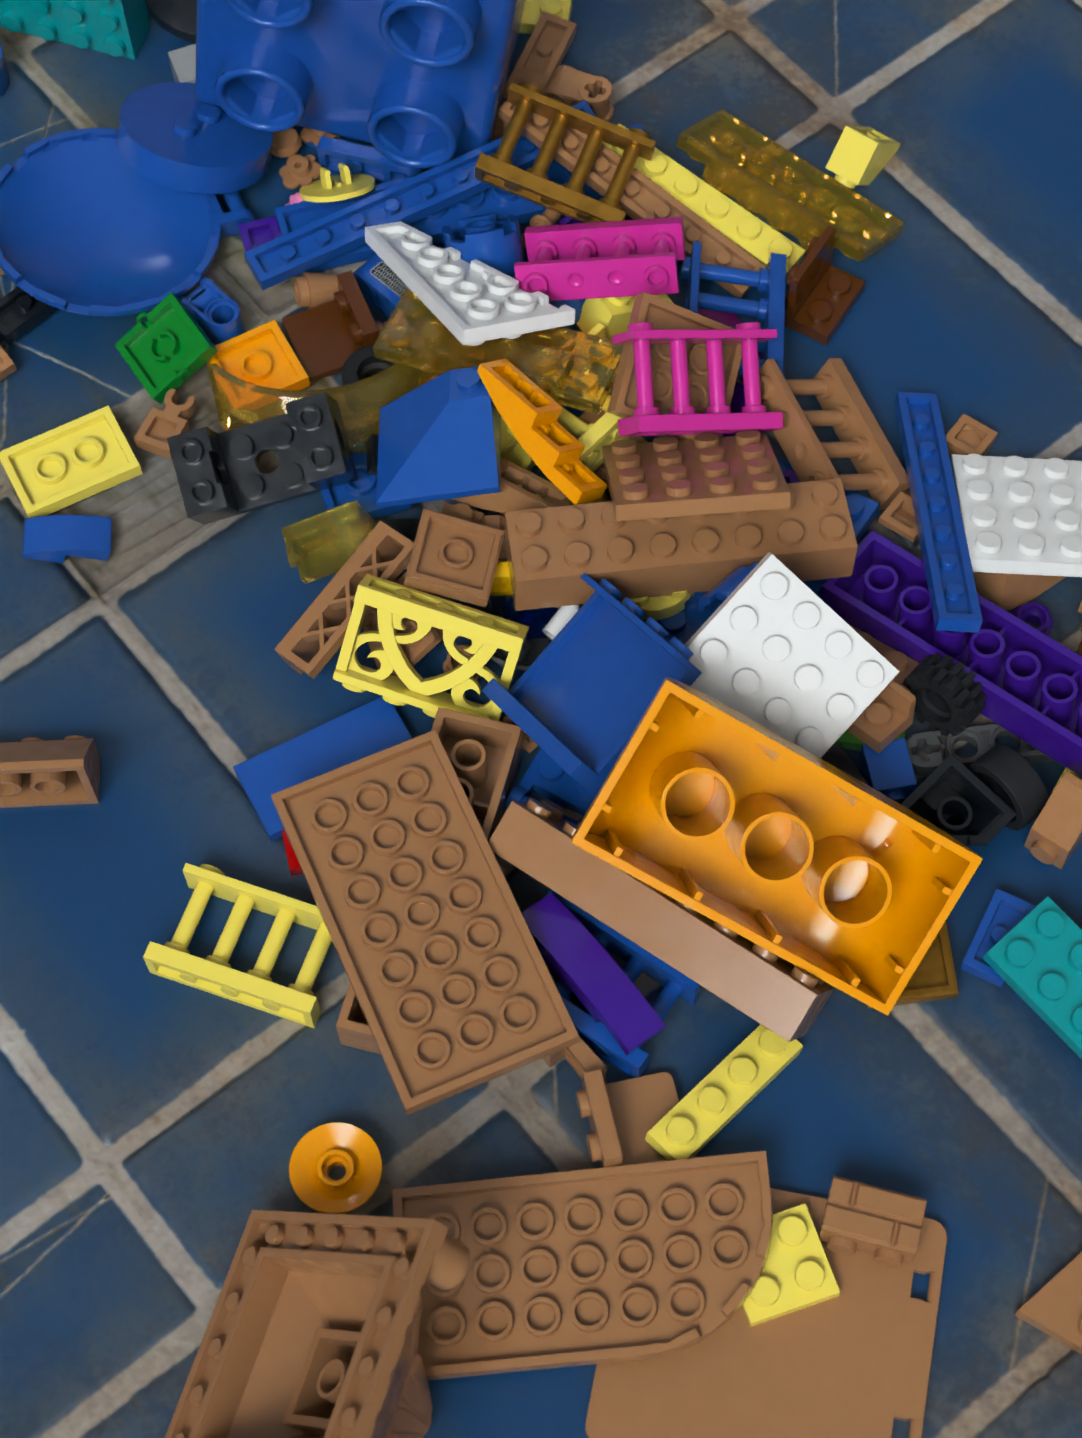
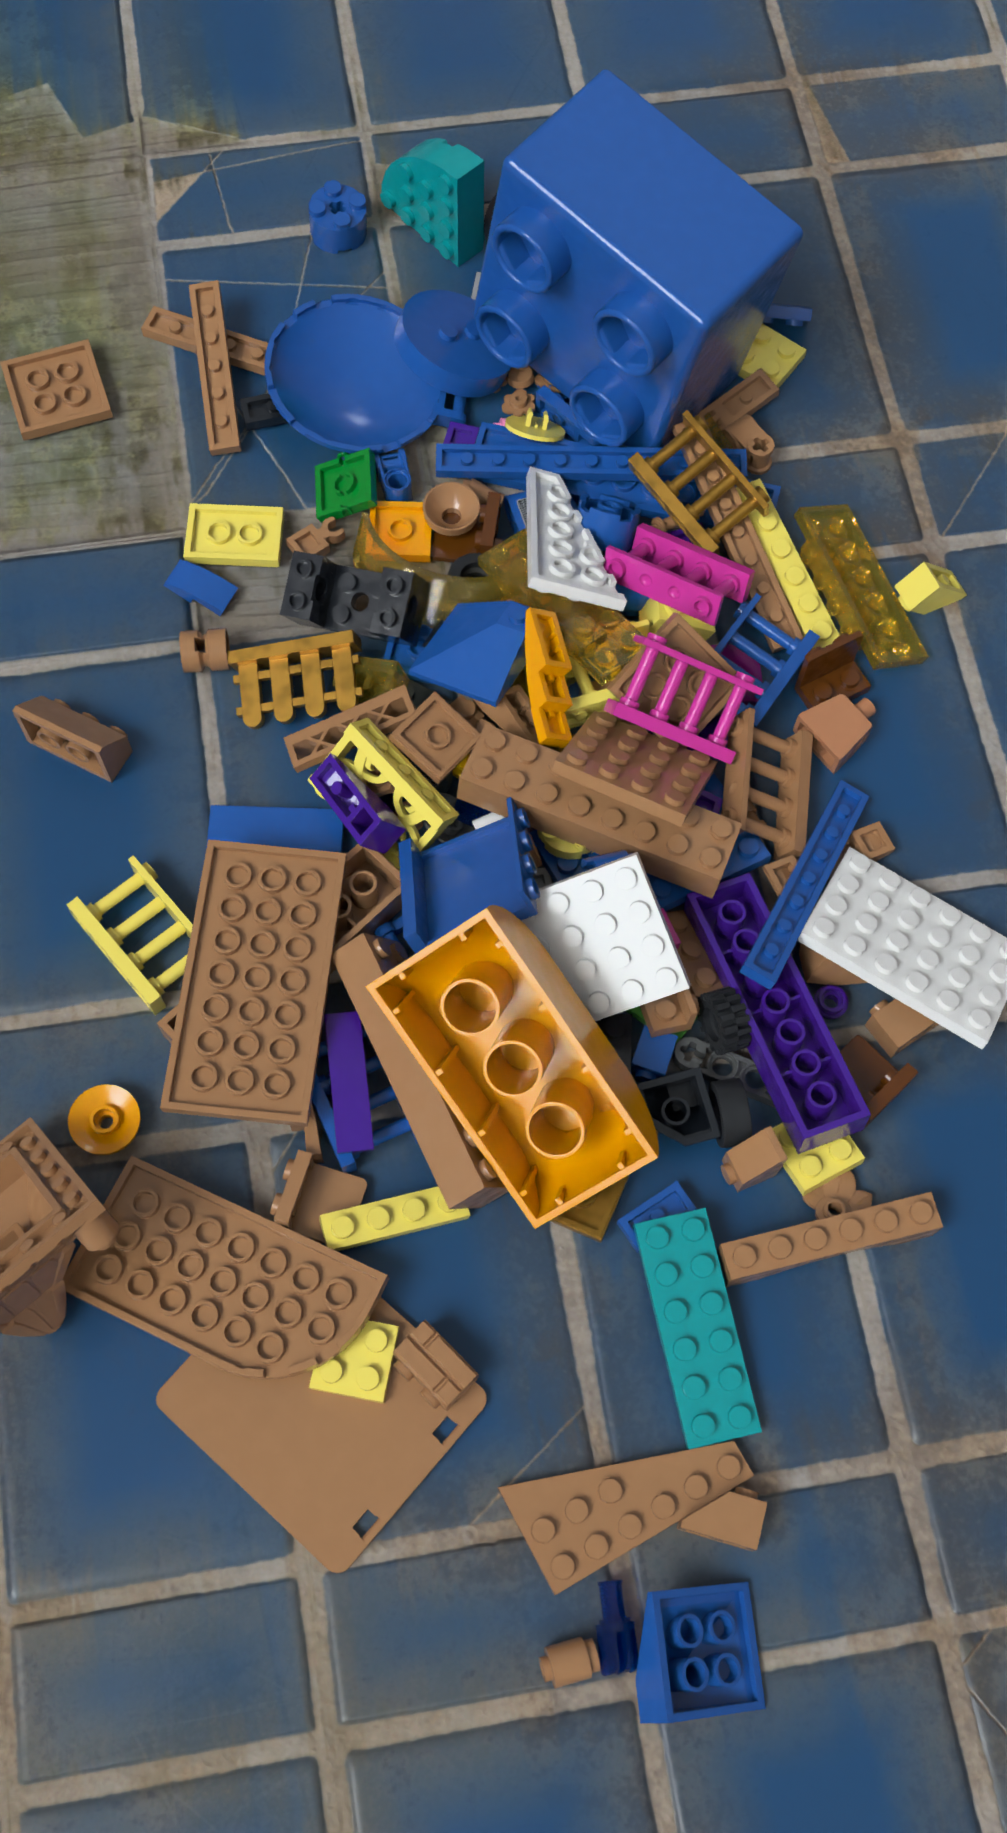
camera: 25 degrees right, 5 degrees up
(134, 598) = (215, 645): none -> medium nougat wheel
(212, 566) = (279, 658): none -> pearl gold fence
(302, 302) = (451, 498): none -> medium nougat piece
(410, 674) = (357, 806): none -> dark purple slope
(861, 339) = (837, 728): none -> nougat torso

